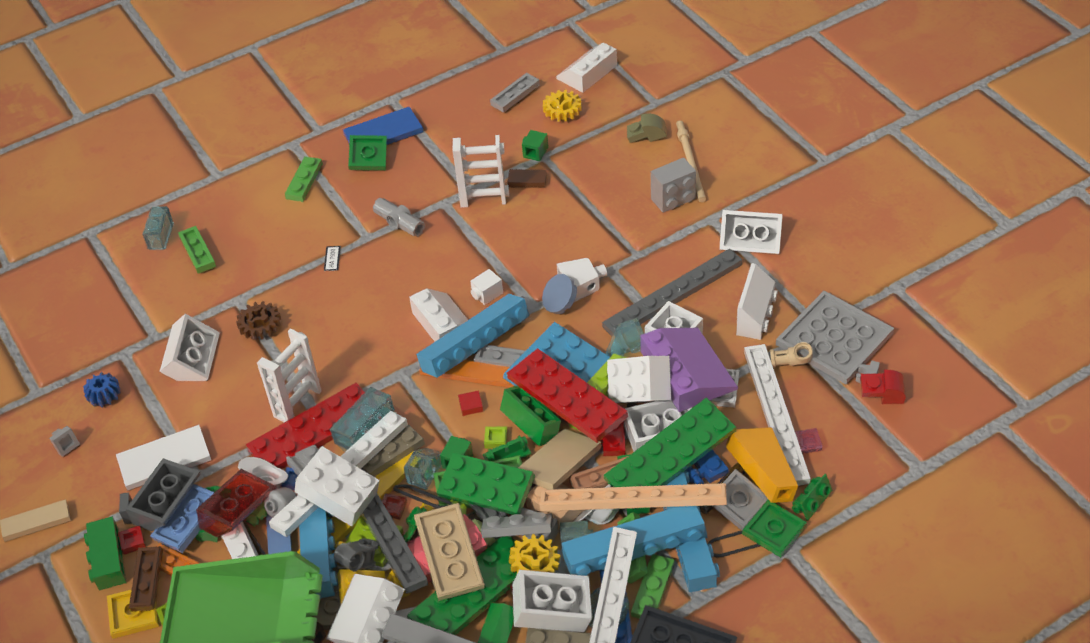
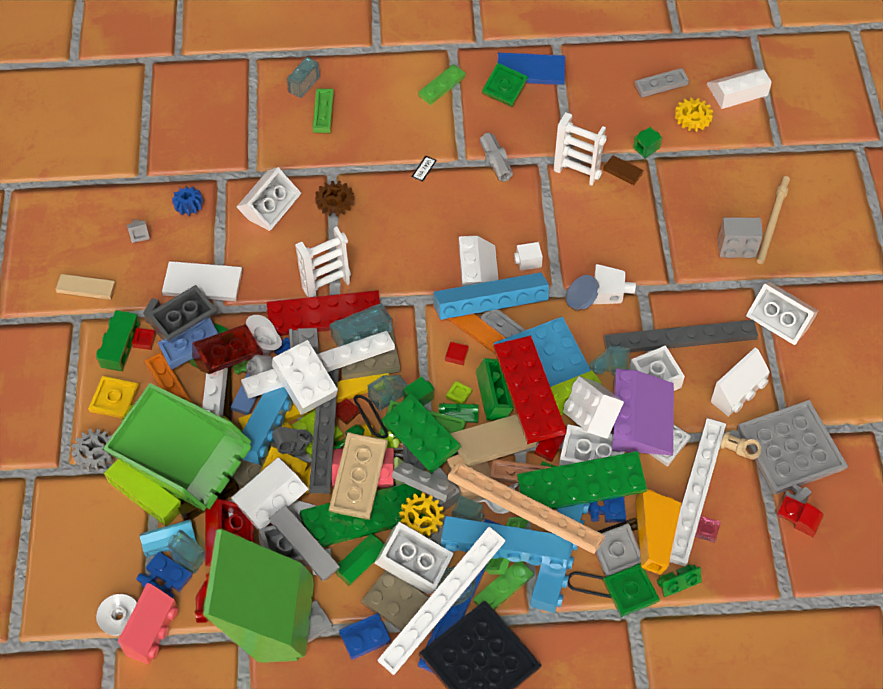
camera: 25 degrees right, 10 degrees up
(145, 579) = (135, 377): reddish brown tile -> none
(650, 126) = (756, 170): olive brick -> none

